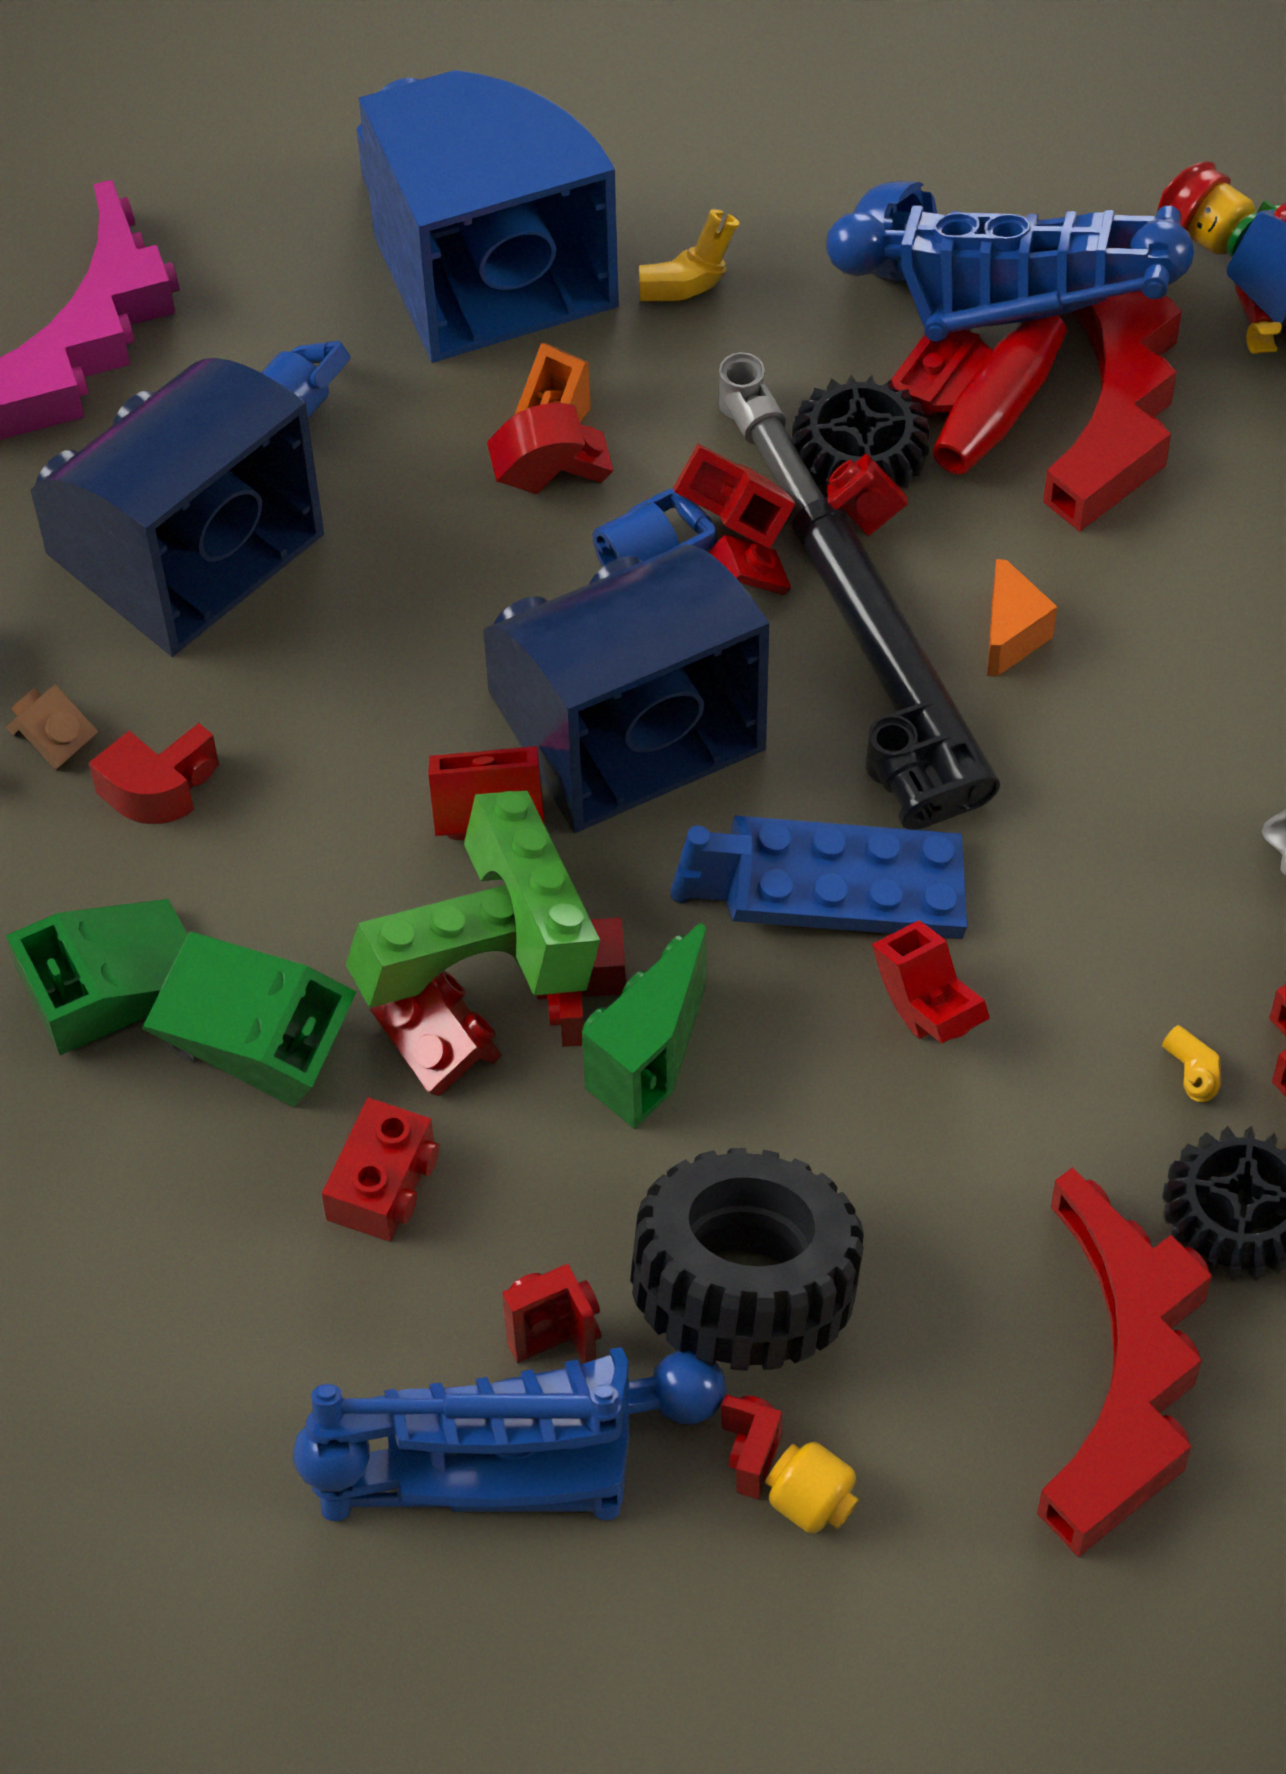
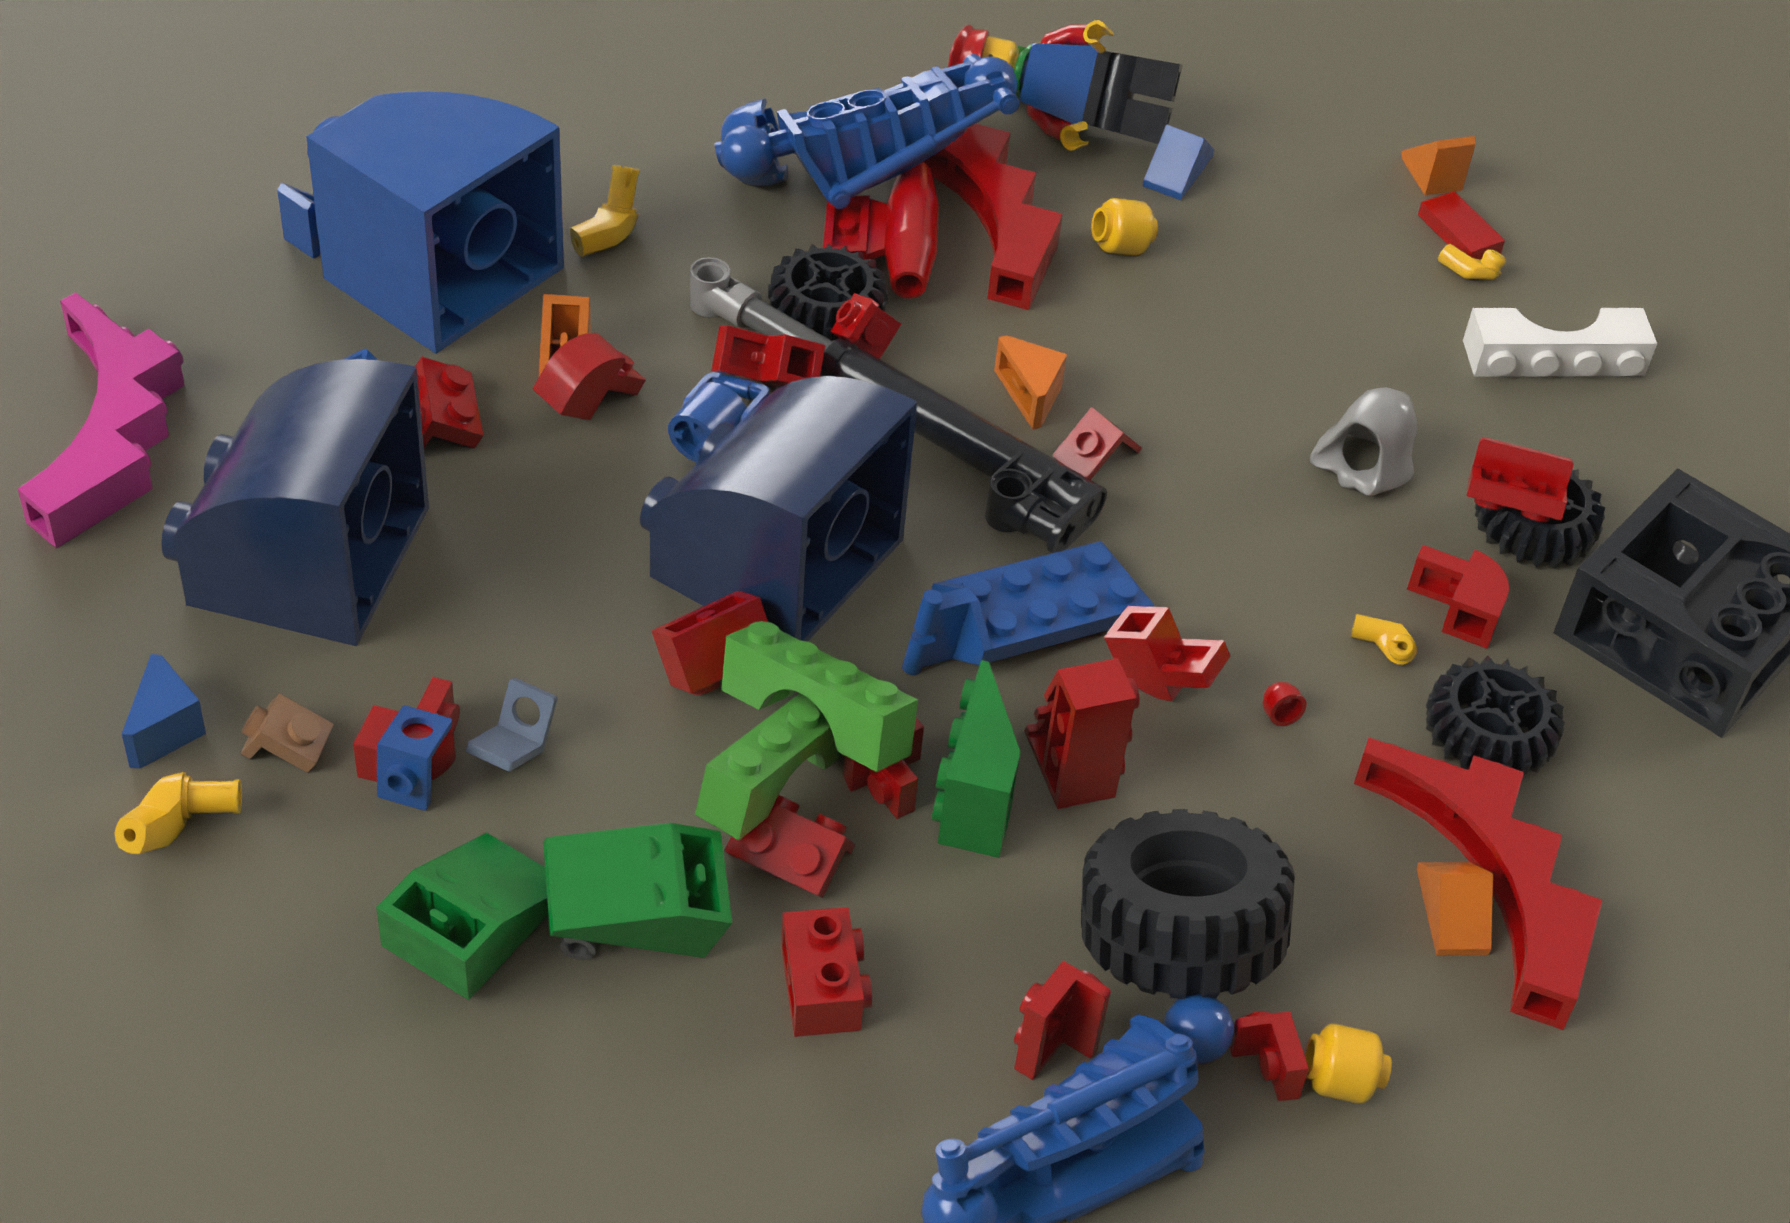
camera: 35 degrees left, 10 degrees down
(125, 797) = (407, 762): none -> blue bracket
(249, 814) = (512, 740): none -> sand blue bracket
(393, 425) = (448, 403): none -> red bracket
(769, 1042) = (1084, 731): none -> red wedge
(1028, 1091) = (1283, 703): none -> red hinge
(1031, 716) = (1091, 444): none -> bracket
(1053, 1382) = (1458, 906): none -> orange slope
(1244, 470) = (1124, 226): none -> yellow head

